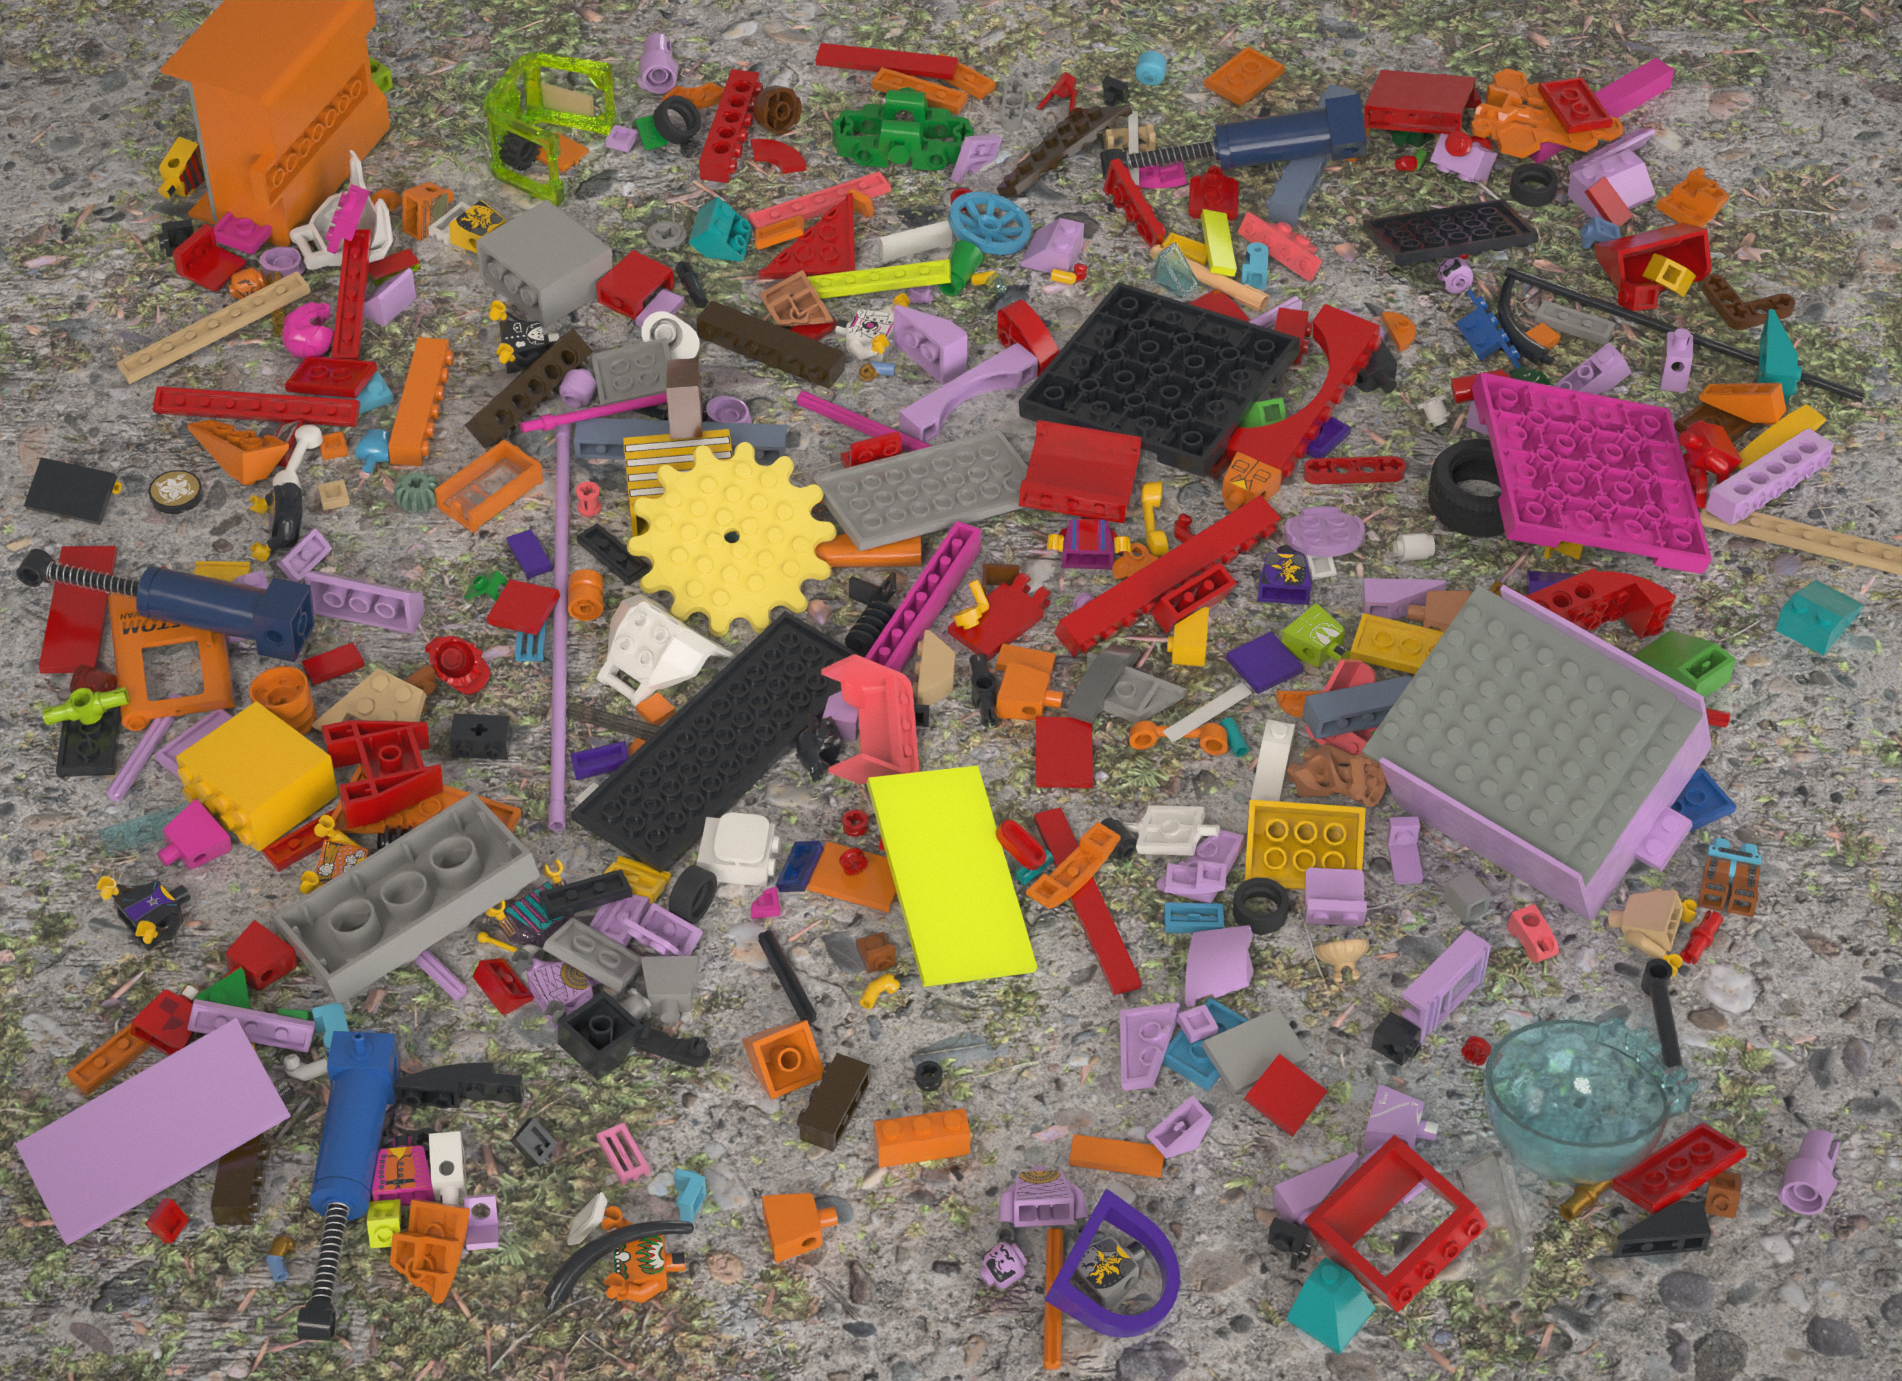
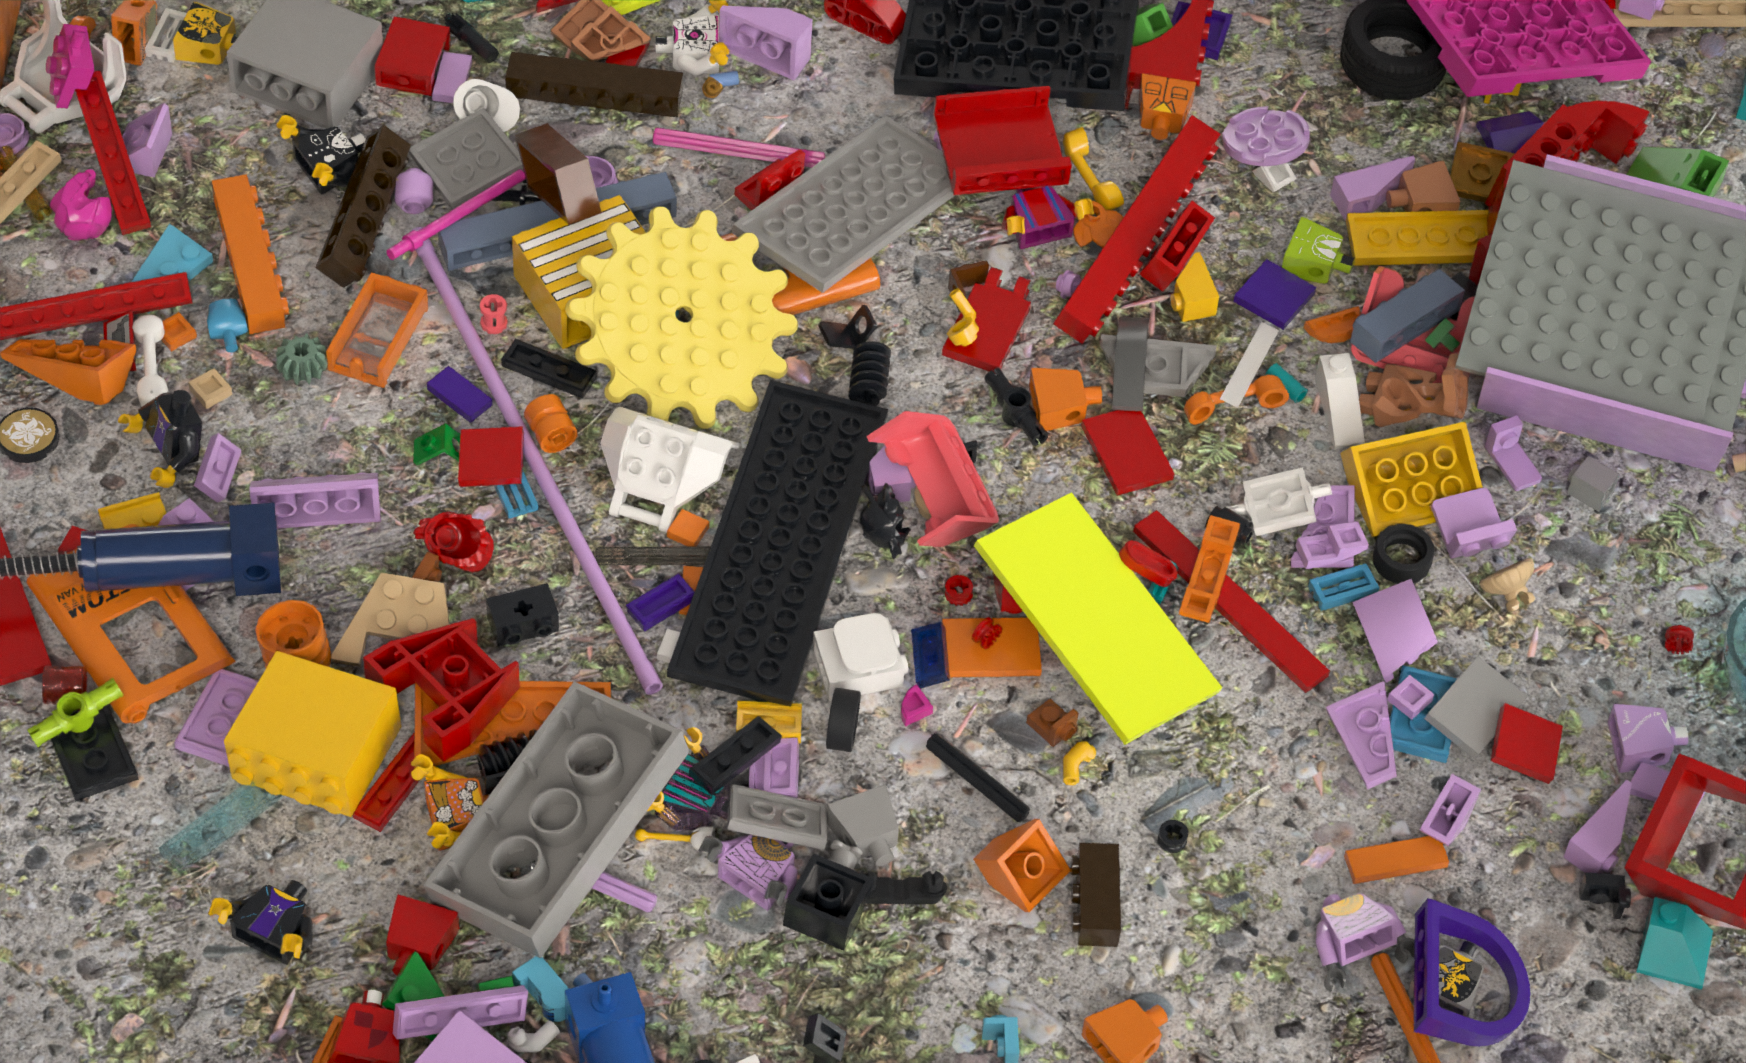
camera: 25 degrees left, 5 degrees up
(139, 756) = (158, 747): lavender axle -> none
(194, 838) = (276, 823): dark pink torso -> none
(331, 377) = (133, 252): red tile -> none
(332, 663) = (314, 579): red tile -> none
(389, 266) = (133, 102): red tile -> none
(450, 1083) = (697, 1005): black slope -> none
(501, 985) = (688, 881): red slope -> none
(631, 1173) = (902, 1028): bright pink tile -> none
(664, 932) = (834, 769): lavender bracket -> none
(922, 1137) = (1204, 903): orange brick -> none
(927, 597) = (910, 323): dark pink brick -> none
(934, 670) = (954, 395): tan slope -> none
(1002, 1265) = (1349, 1009): lavender head -> none
(1006, 370) = (857, 47): lavender arch -> none
(1032, 658) = (1022, 360): orange tile -> none
(1182, 528) = (1124, 177): red arm -> none
(1284, 578) = (1252, 197): torso -> none
(1354, 466) = (1294, 46): red beam -> none
(1397, 1039) = (1601, 651): black brick -> none
(1414, 547) = (1359, 127): white brick -> none
(1446, 982) = (1623, 585): lavender door -> none
(1533, 933) = (1673, 502): coral leg -> none

